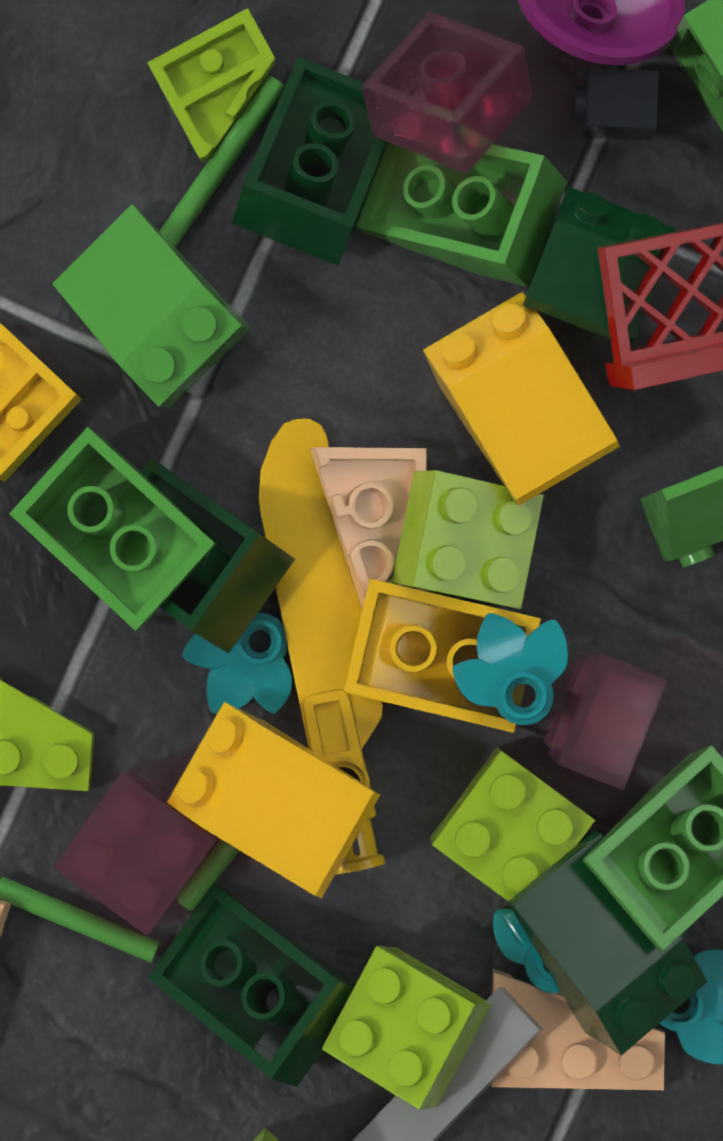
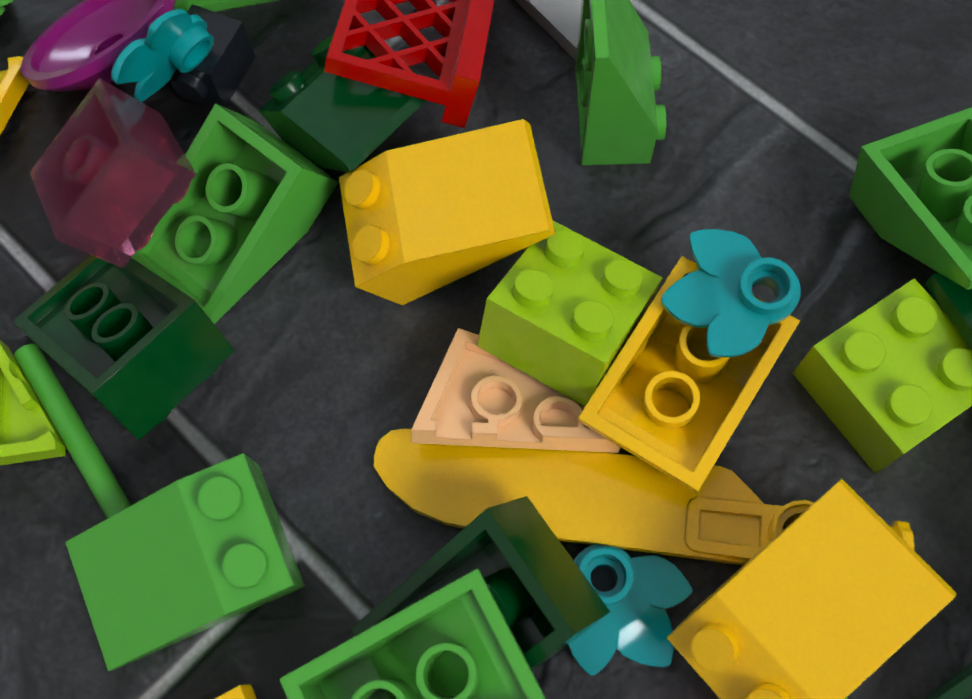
camera: 70 degrees left, 20 degrees down
(596, 95) = (171, 43): none -> teal plate
(604, 718) = (813, 226): clear pink brick -> none

